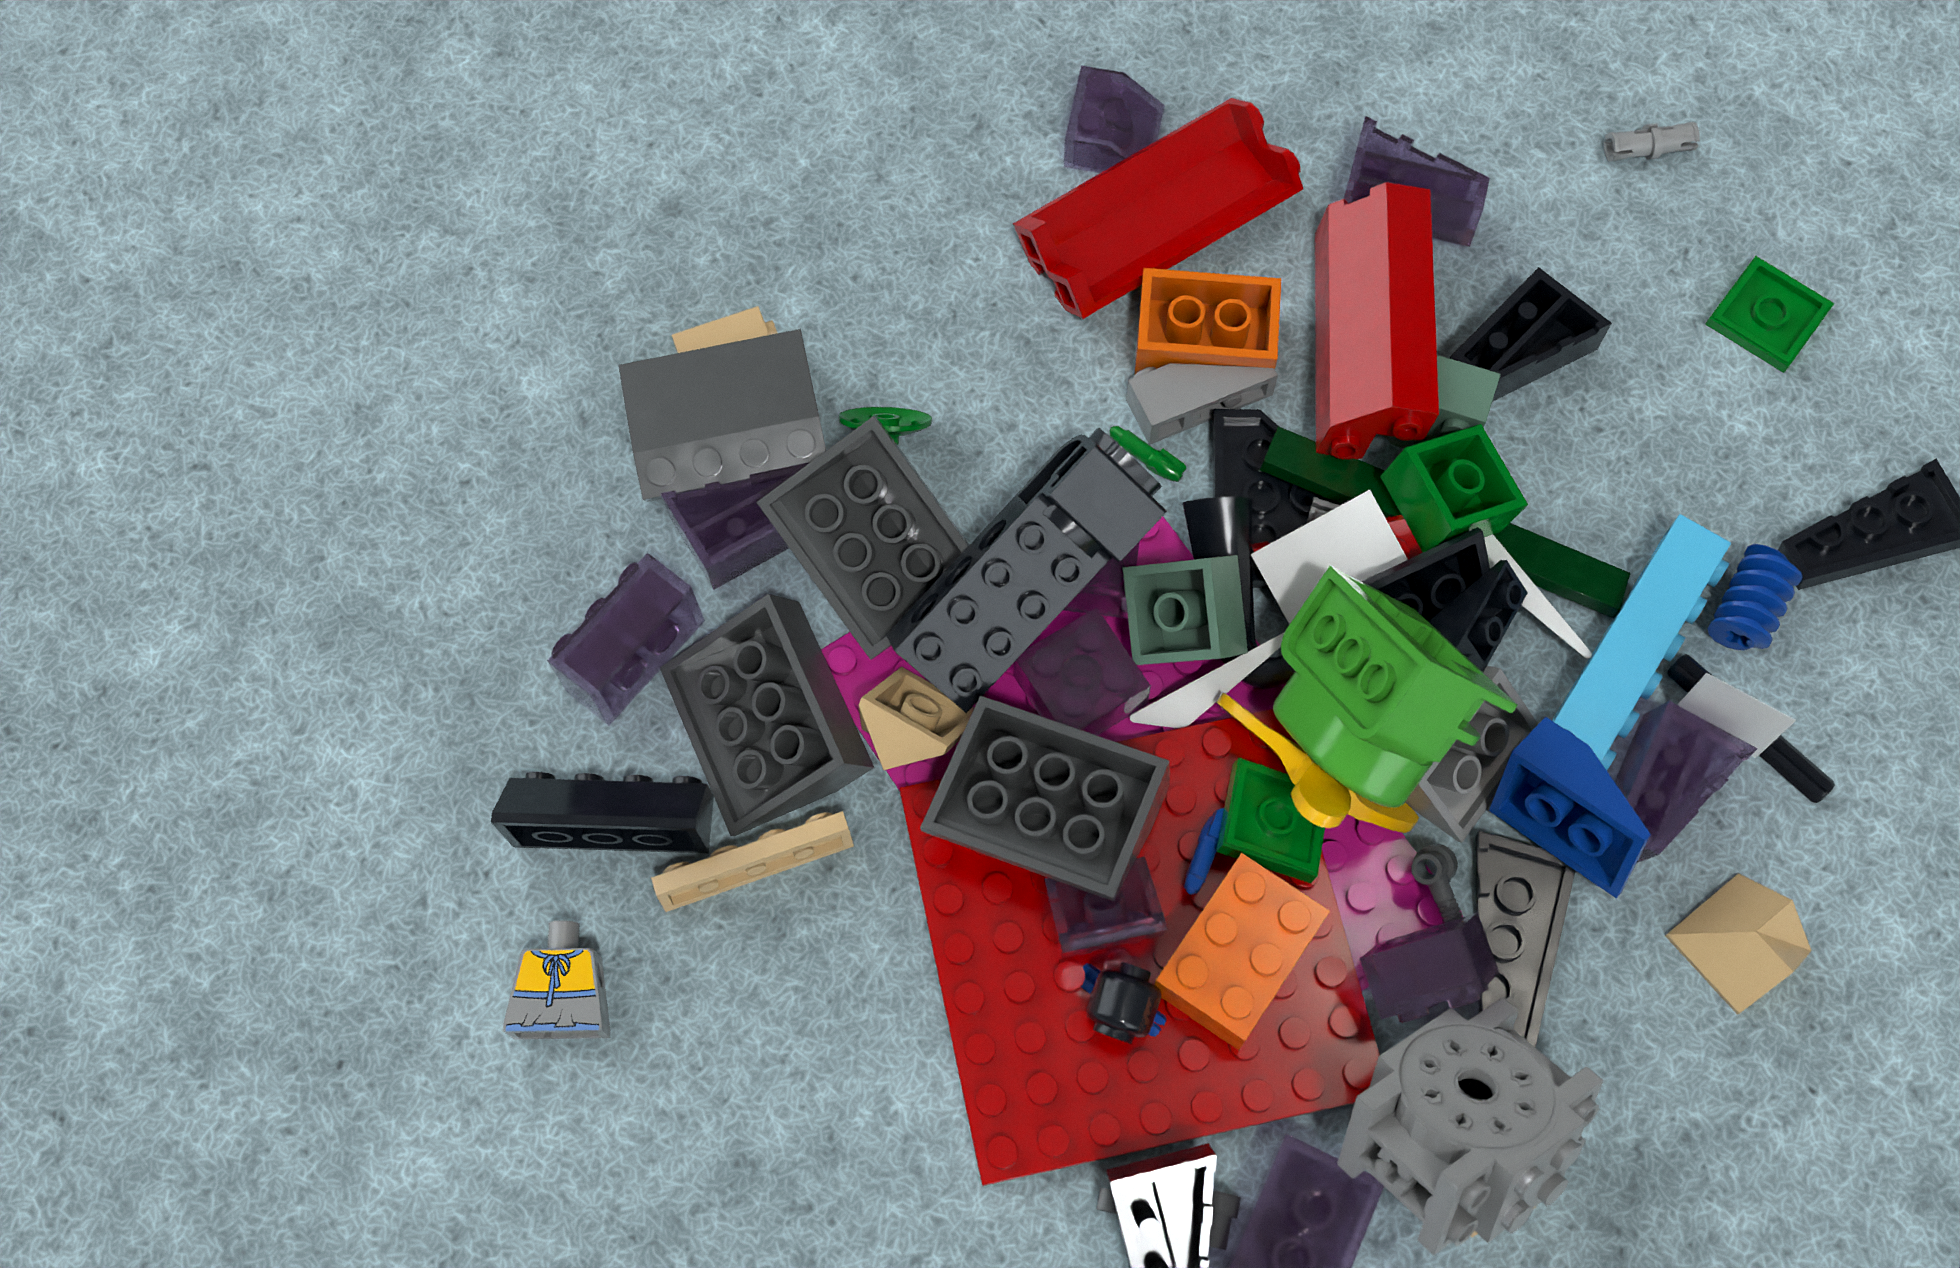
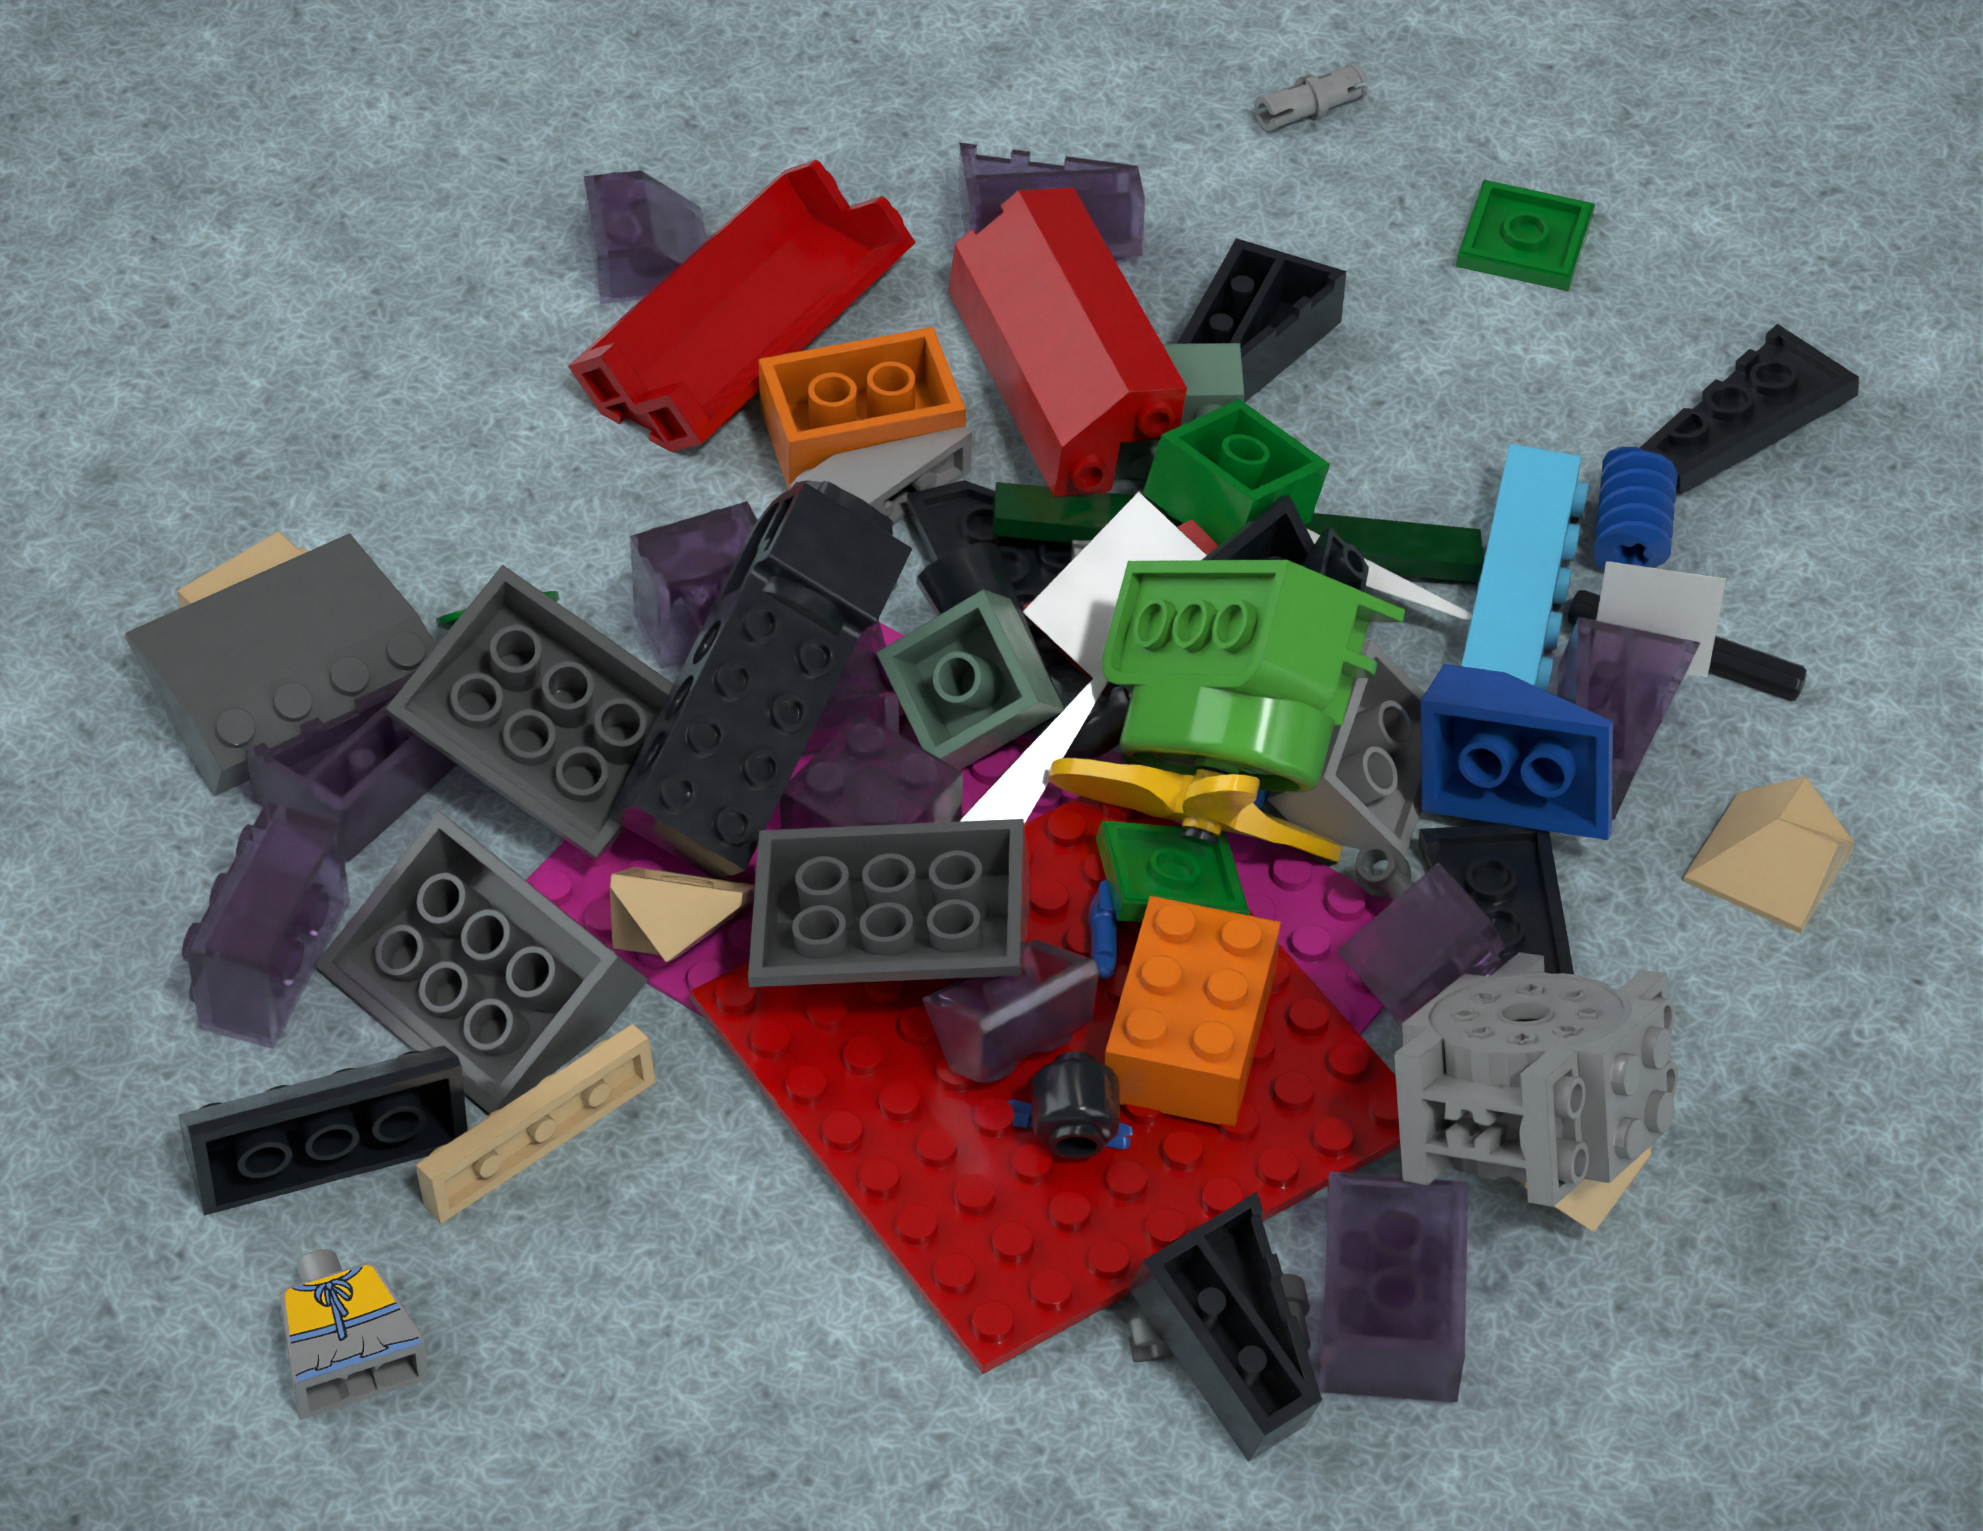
camera: 25 degrees left, 20 degrees down
(1025, 438) = (680, 575): none -> clear purple brick

